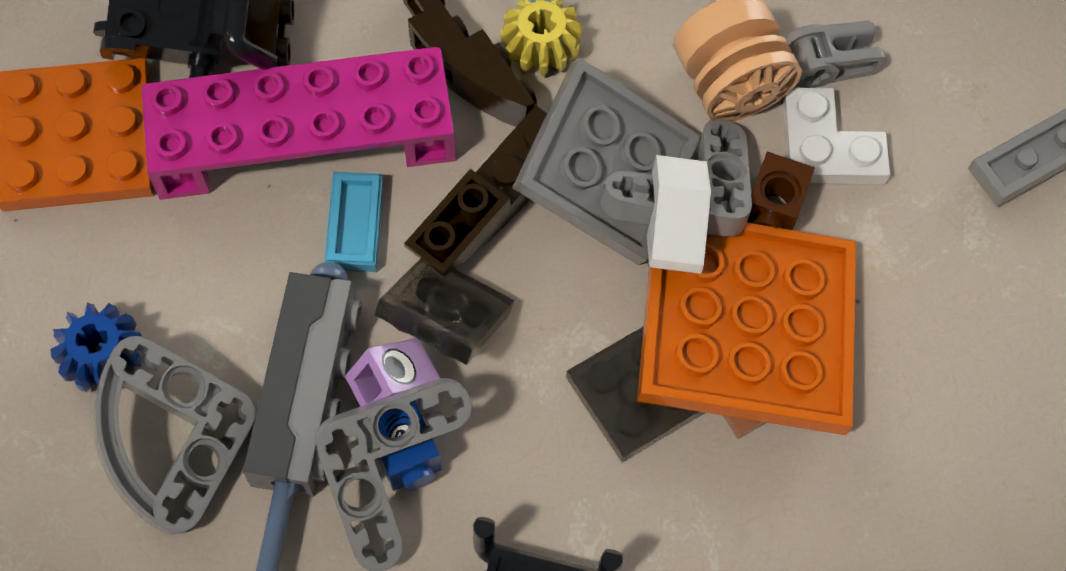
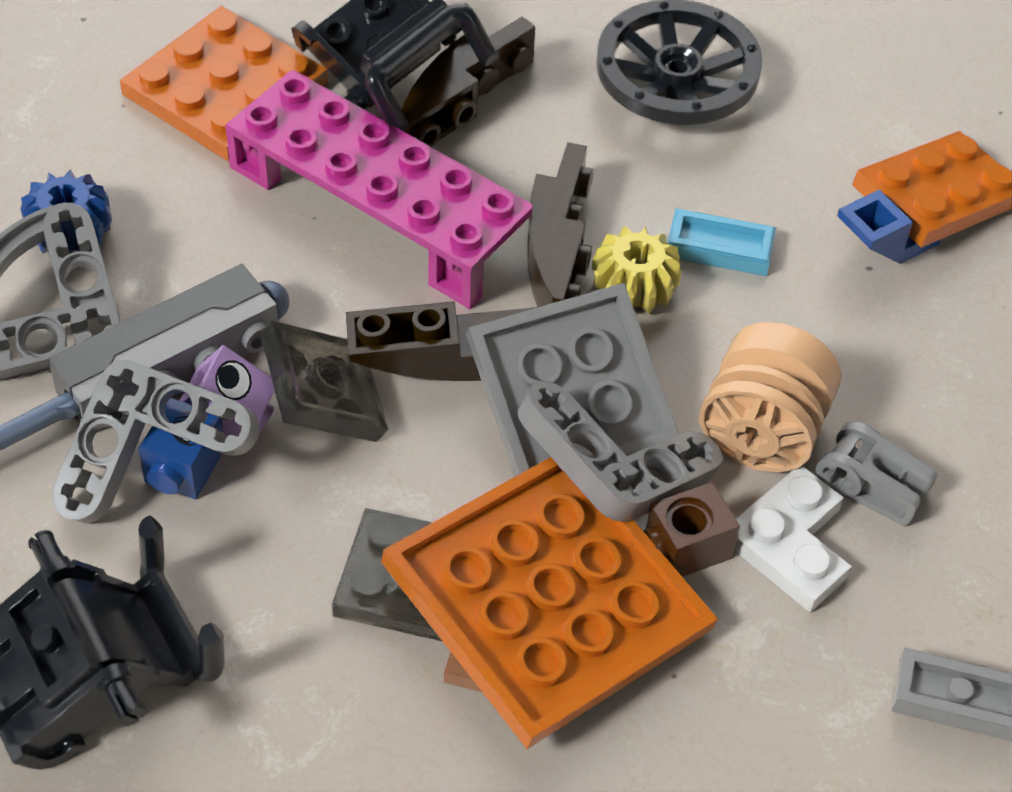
camera: 45 degrees right, 15 degrees down
(354, 221) = (342, 285): medium azure tile -> none
(679, 214) = (566, 449): white slope -> none

